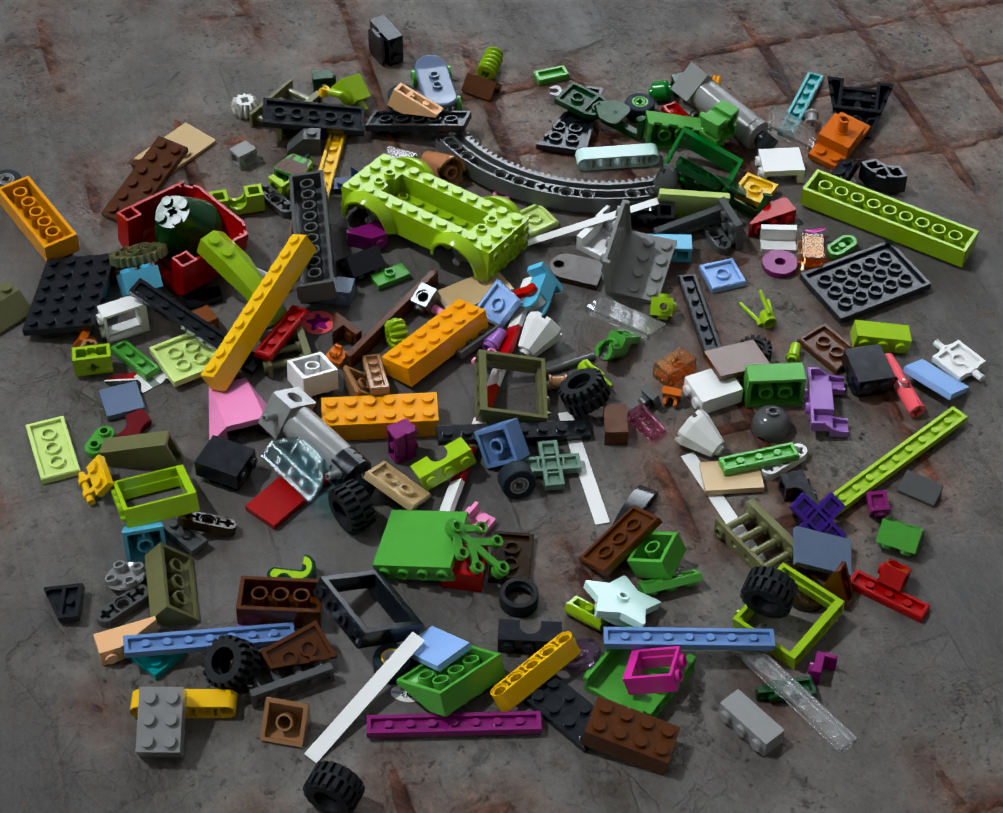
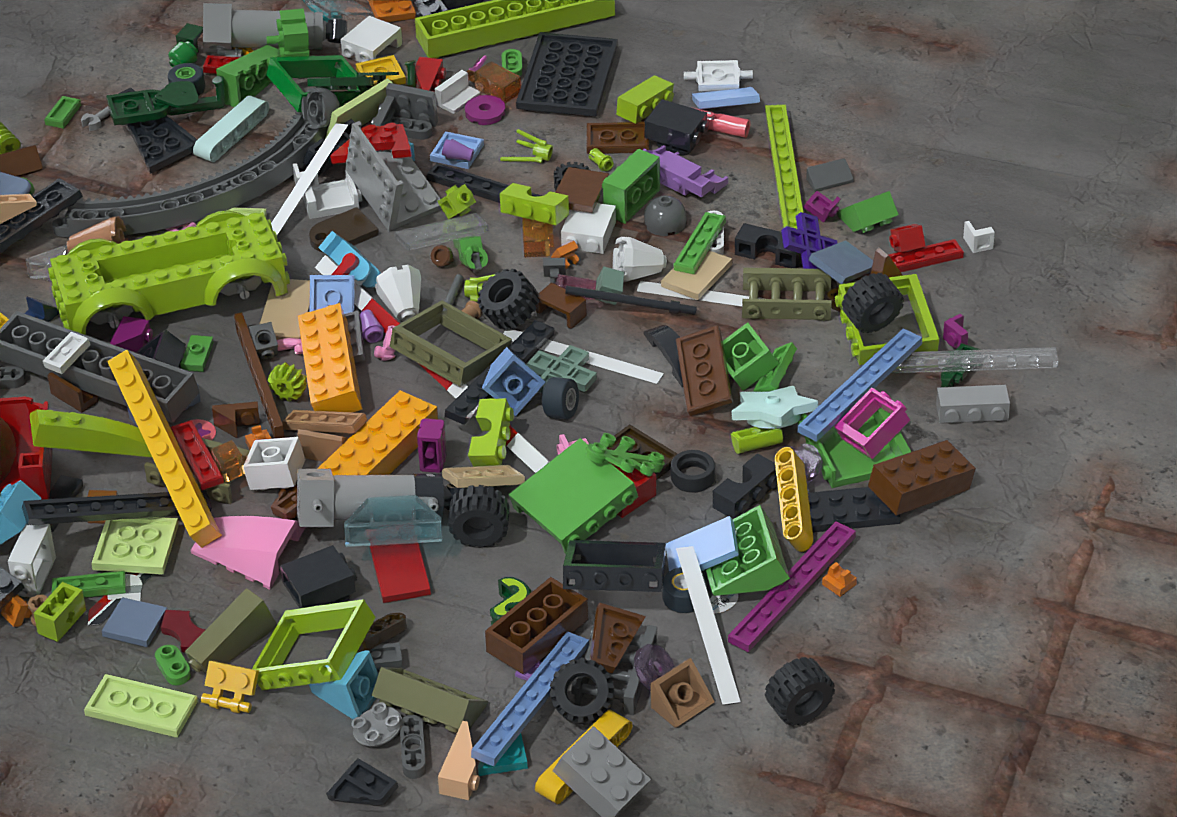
camera: 50 degrees left, 5 degrees down
(286, 349) = (228, 460): none -> clear orange brick
(295, 678) = (645, 660): none -> clear purple tile
(299, 213) = (66, 352): none -> white plate
(487, 749) = (839, 580): none -> orange tile
(601, 332) = (442, 256): none -> reddish brown tile
(659, 437) = (610, 281): none -> sand green brick
(666, 226) = (382, 138): none -> red wing
(678, 484) = (672, 306): none -> black bar
(690, 353) = (549, 209): none -> lime arch
(711, 274) = (454, 150): none -> medium lavender cone
(947, 620) = (979, 239): none -> white panel

